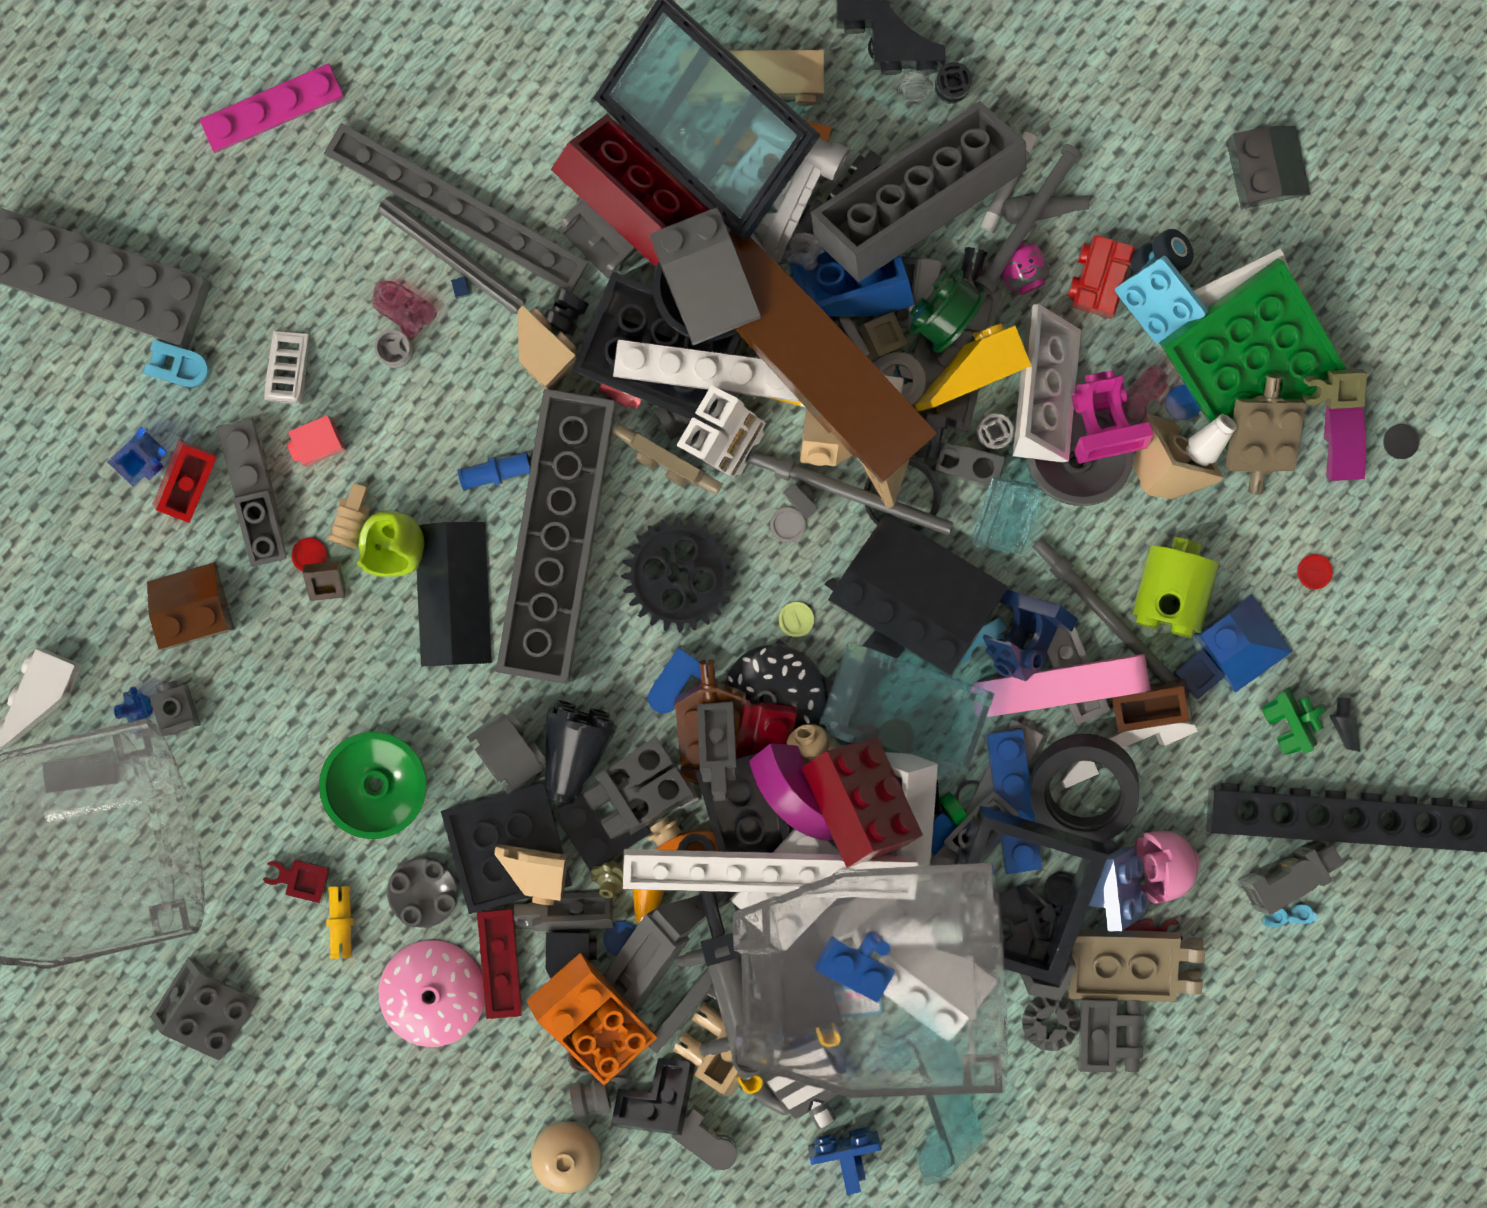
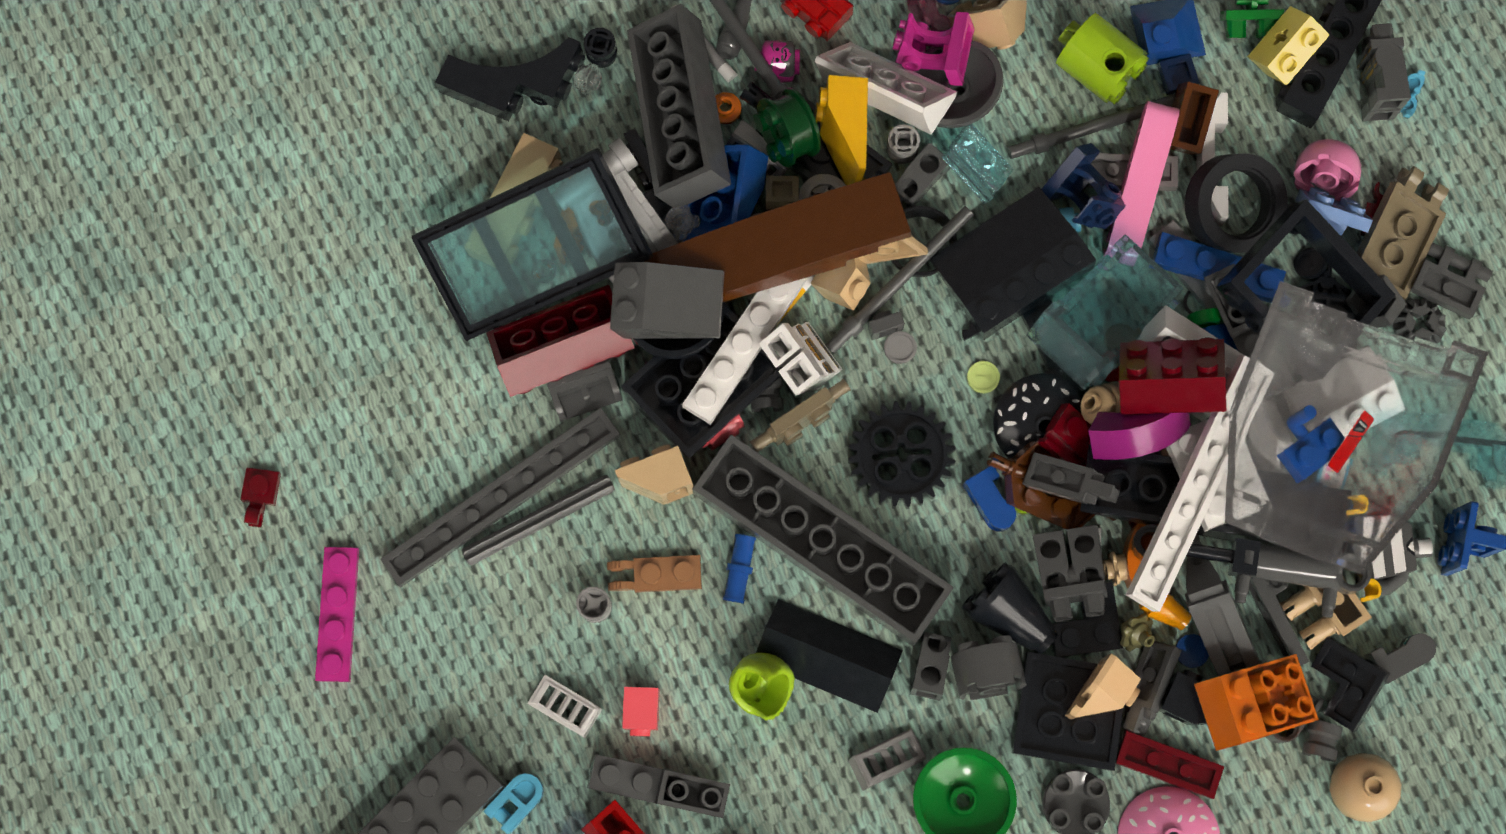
camera: 60 degrees left, 10 degrees down
(308, 552) = (735, 764): red piece -> none
(324, 581) = (765, 760): dark brown plate -> none
(350, 518) = (721, 712): tan hinge -> none
(357, 676) = (861, 771): none -> light grey slope
(393, 301) = (562, 580): clear pink plate -> none
(454, 397) = (659, 574): none -> medium nougat hinge
(460, 287) = (569, 525): dark blue piece -> none
(488, 697) = (931, 666): none -> dark grey leg
(566, 311) = (632, 443): black wheel -> none
(879, 1001) = (1350, 441): none -> red sticker
(947, 248) = (734, 113): none -> orange plate
(1276, 770) = (1288, 45): none -> light yellow brick

